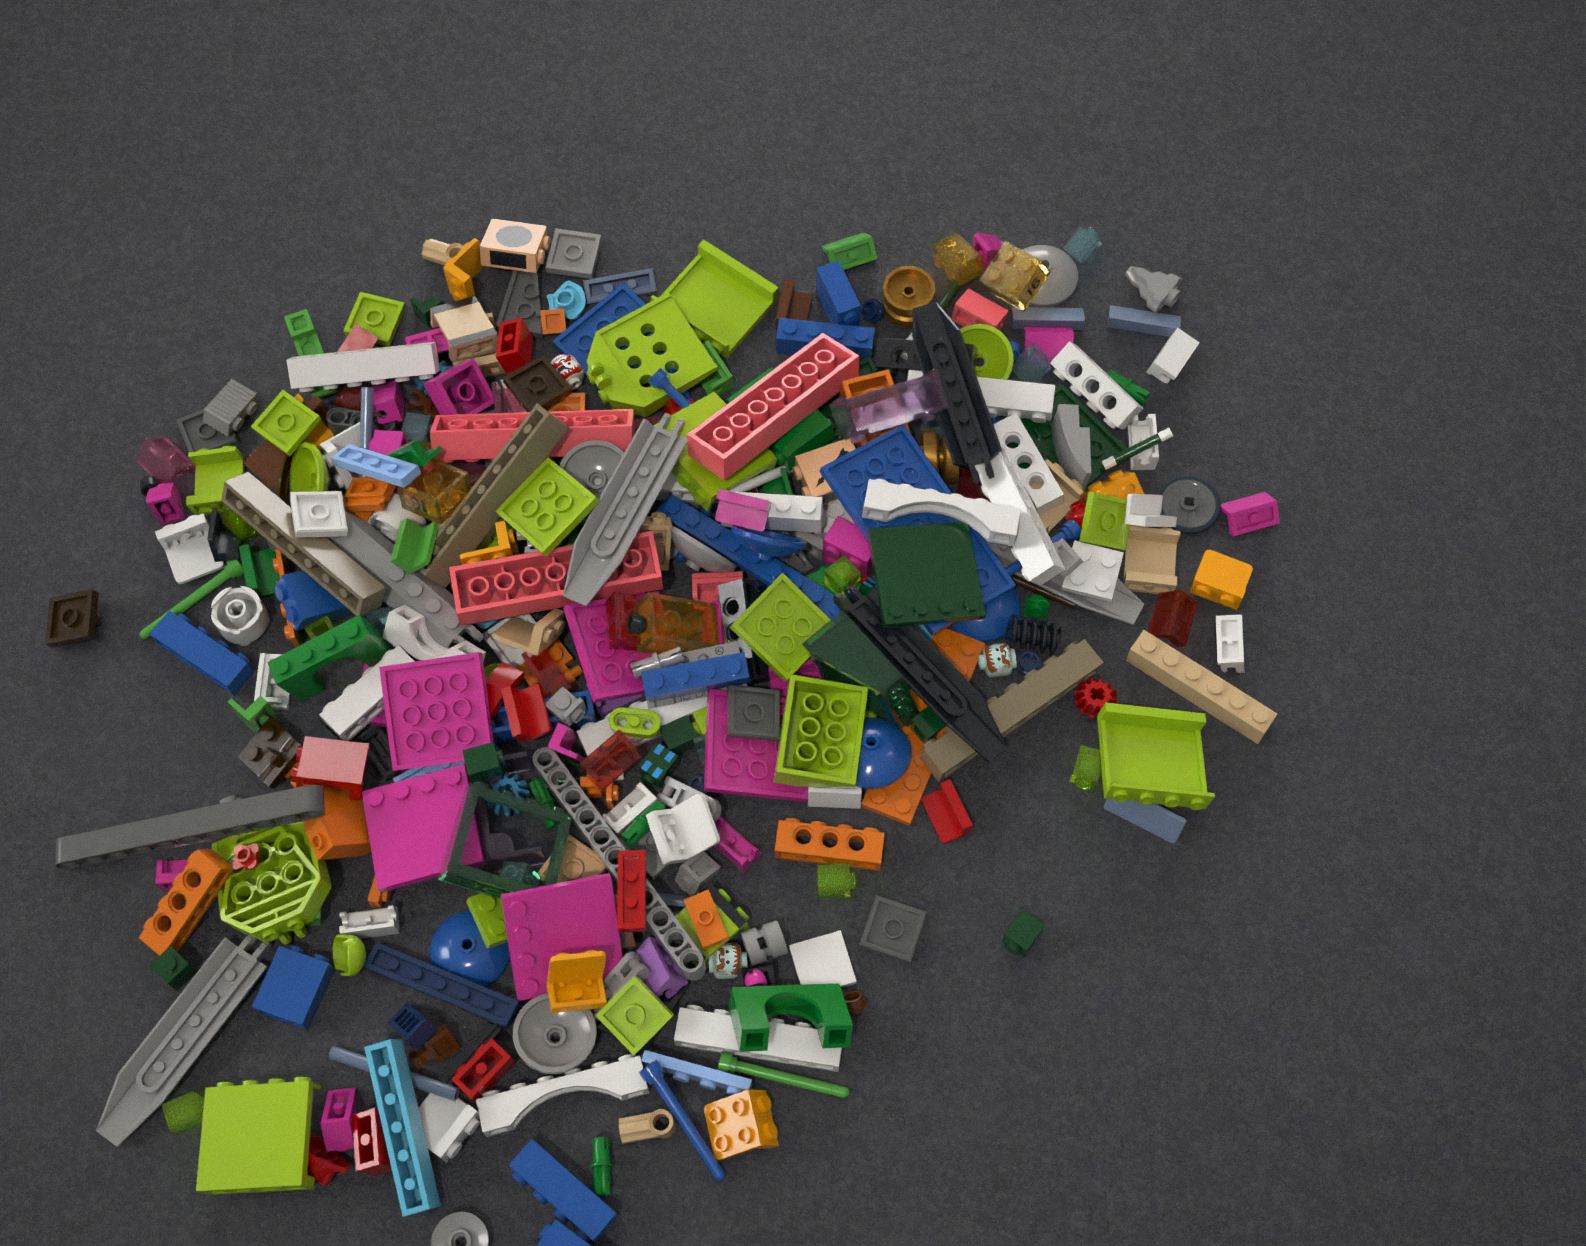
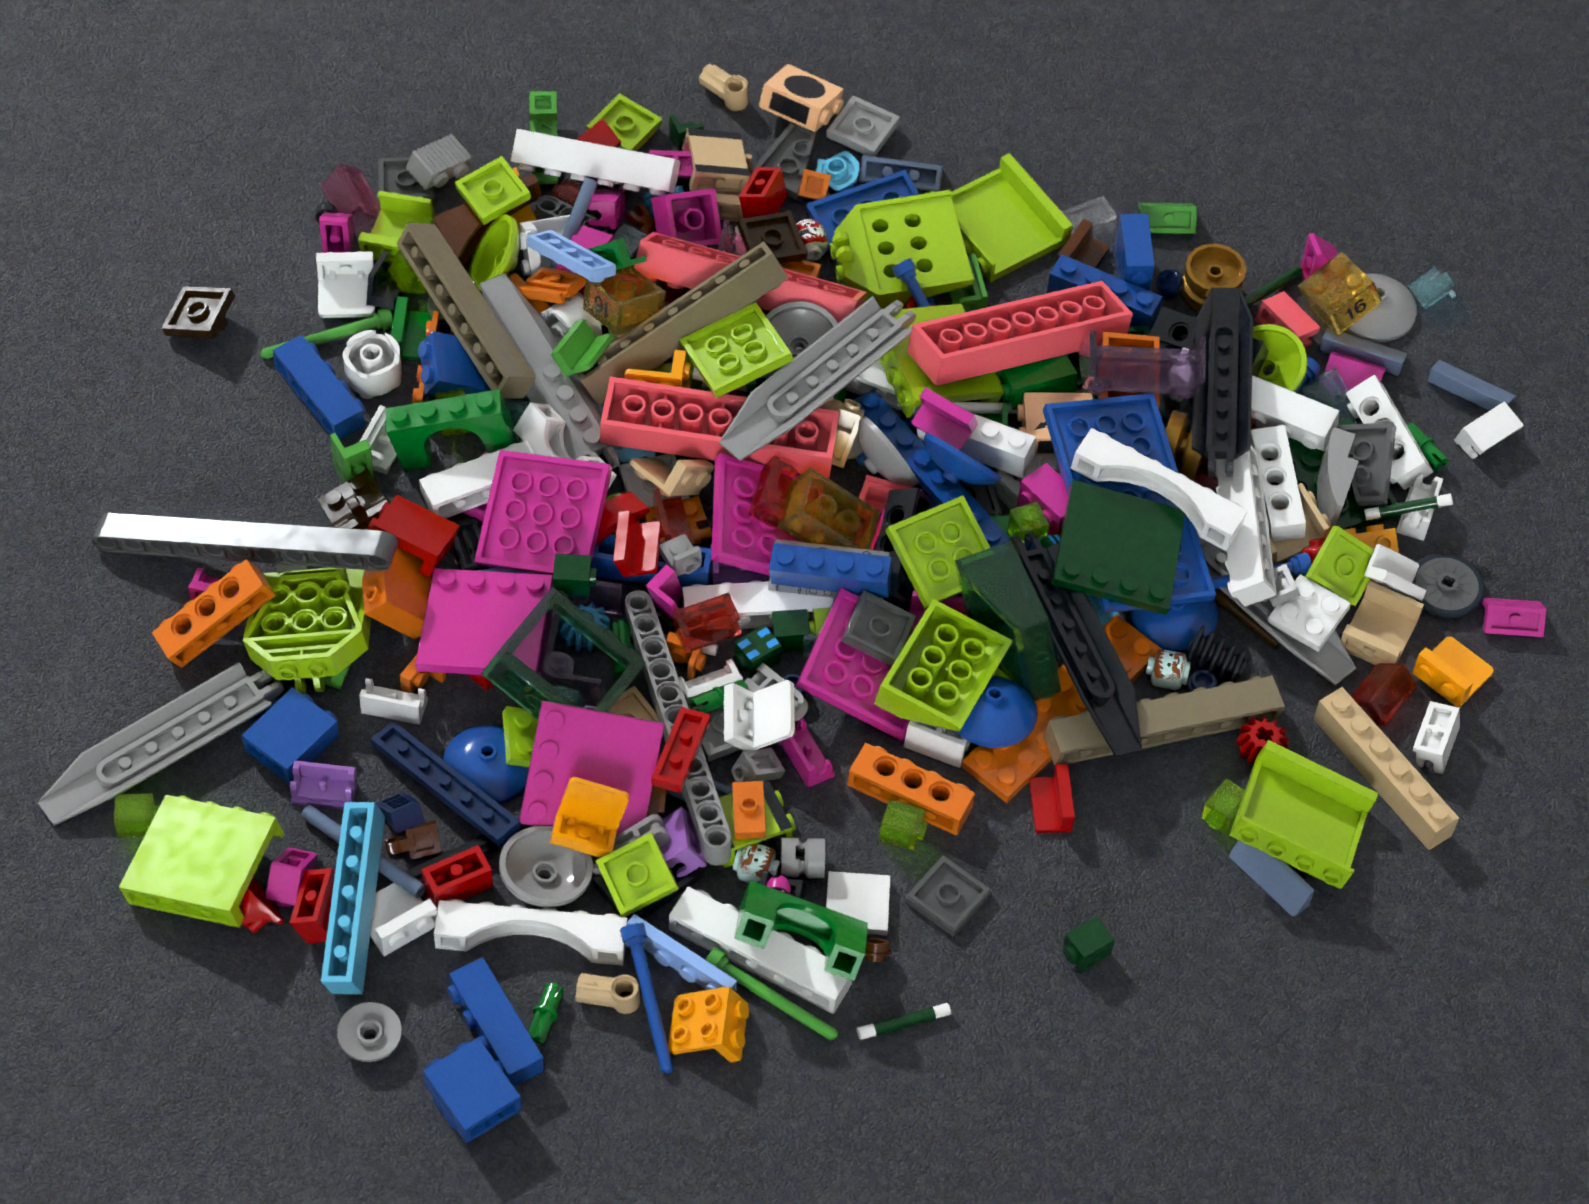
camera: 15 degrees right, 10 degrees down
(173, 968) = (174, 674): dark green brick -> none
(250, 861) = (292, 588): red plate -> none
(318, 514) = (493, 285): white tile -> none
(338, 1024) = (323, 785): none -> medium lavender hinge
(348, 954) = (360, 721): lime hair -> none
(462, 269) = (738, 103): light orange bracket -> none
(635, 722) = (749, 595): lime plate -> none
(636, 624) = (787, 494): black hinge -> none
(658, 661) = (810, 540): light grey pin -> none
(789, 267) = (1096, 211): none -> clear tile
(898, 1058) = (903, 1021): none -> dark green bar
(926, 725) = (1063, 700): dark green panel -> none
(957, 259) = (1283, 258): clear yellow brick -> none
(1036, 606) = (1233, 630): green plate -> none
(1095, 414) = (1374, 450): none -> dark grey wing
(1155, 287) = (1497, 357): light grey rock -> none

